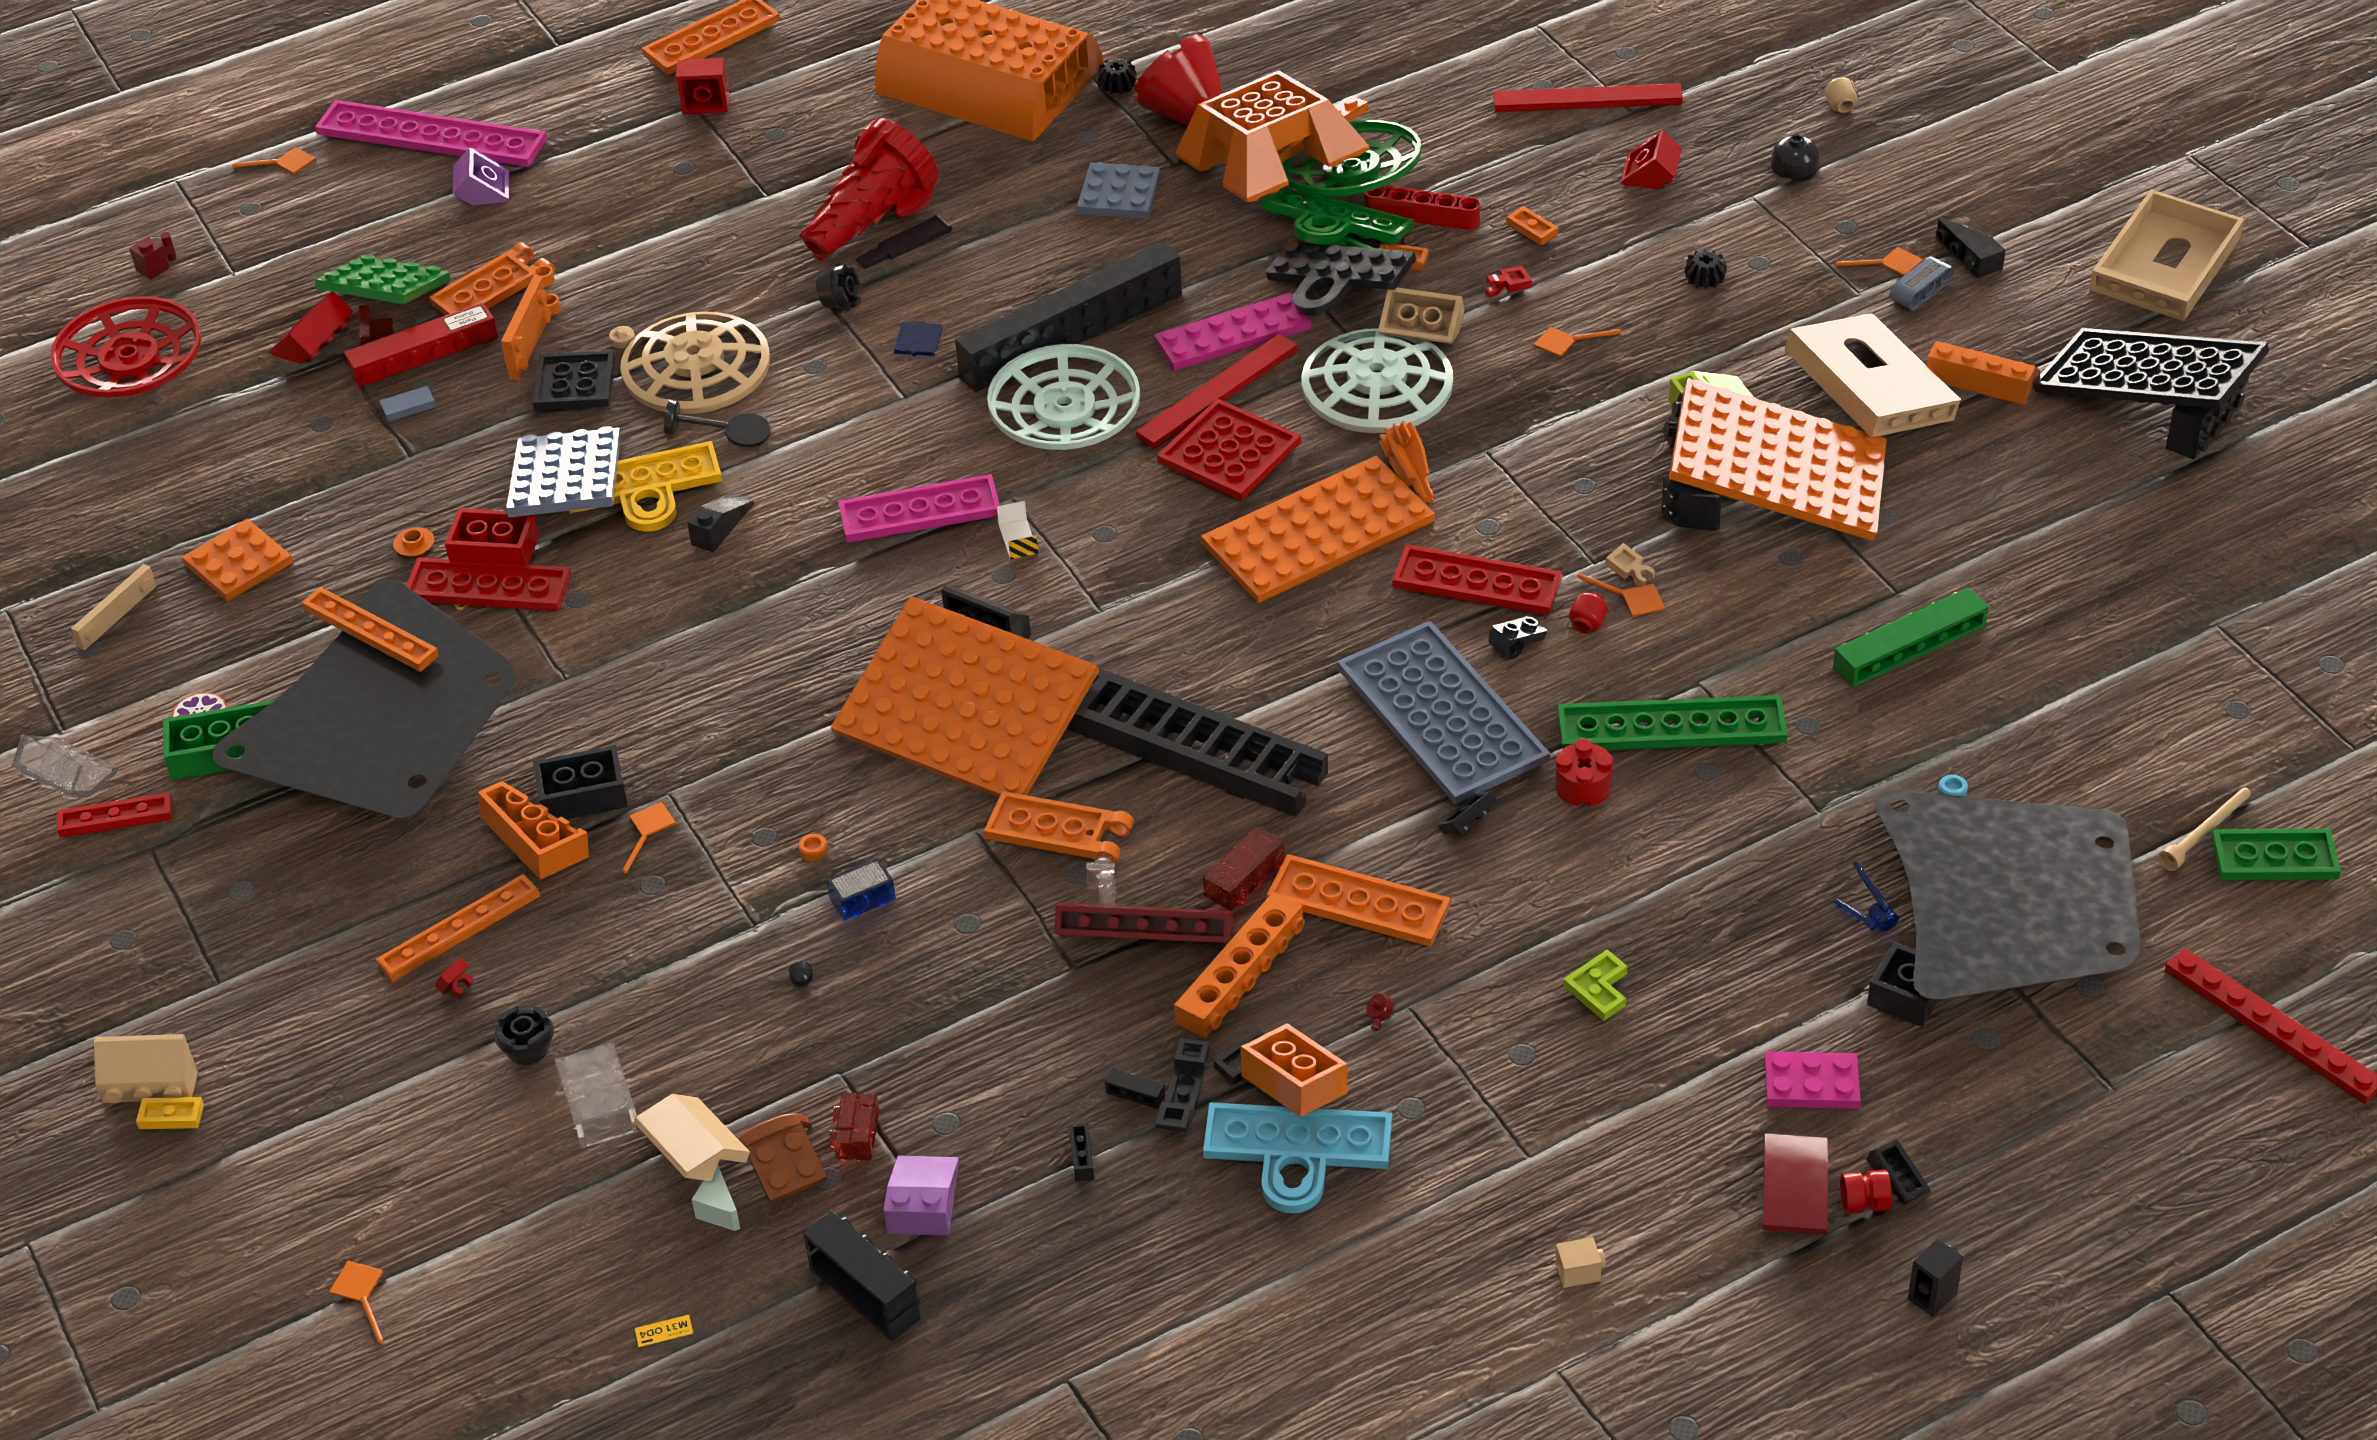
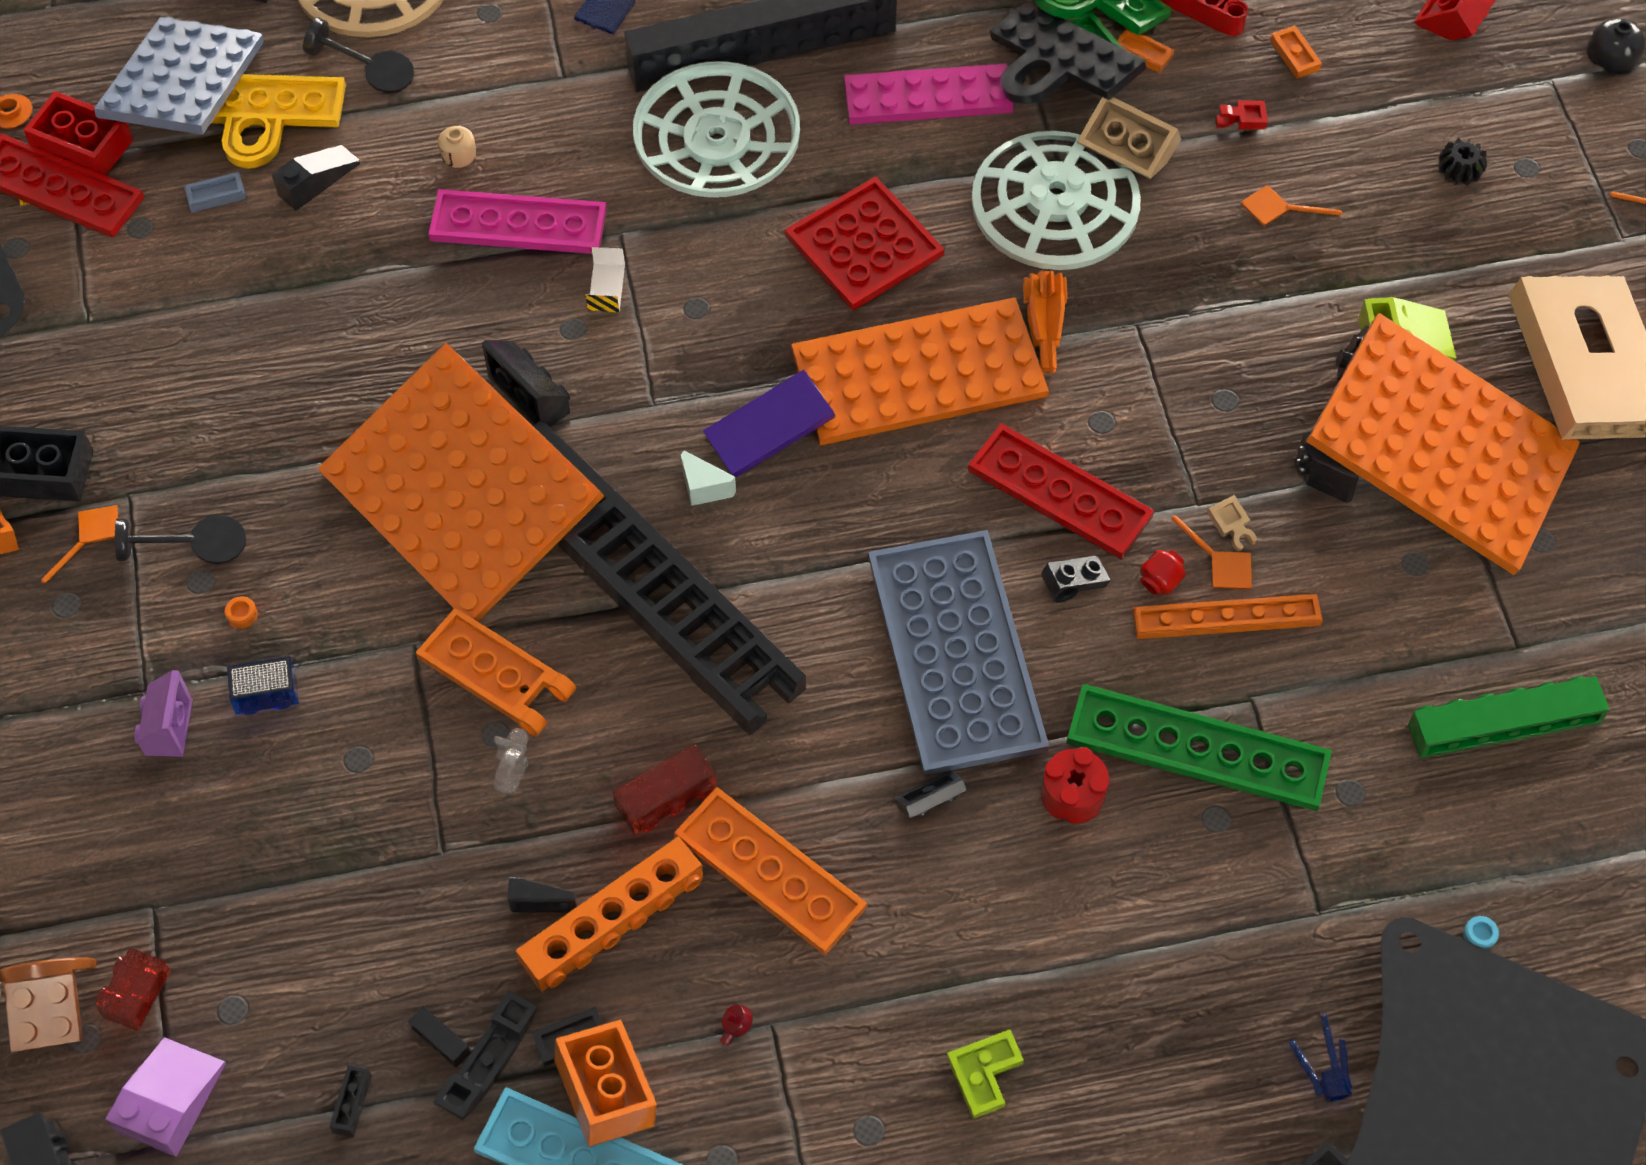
camera: 15 degrees right, 15 degrees up
(634, 555) = (215, 192): none -> sand blue tile
(759, 801) = (213, 539): none -> black piece
(785, 930) = (164, 716): none -> medium lavender slope
(801, 973) = (160, 772): black hinge -> none
(839, 466) = (457, 146): none -> tan head
(1144, 922) = (530, 828): dark red brick -> none
(1168, 970) = (538, 898): none -> black slope
(1173, 648) = (705, 481): none -> light aqua slope
(1209, 595) = (769, 423): none -> dark purple tile
(1220, 387) = (882, 164): red tile -> none
(1653, 631) = (1227, 616): none -> orange tile

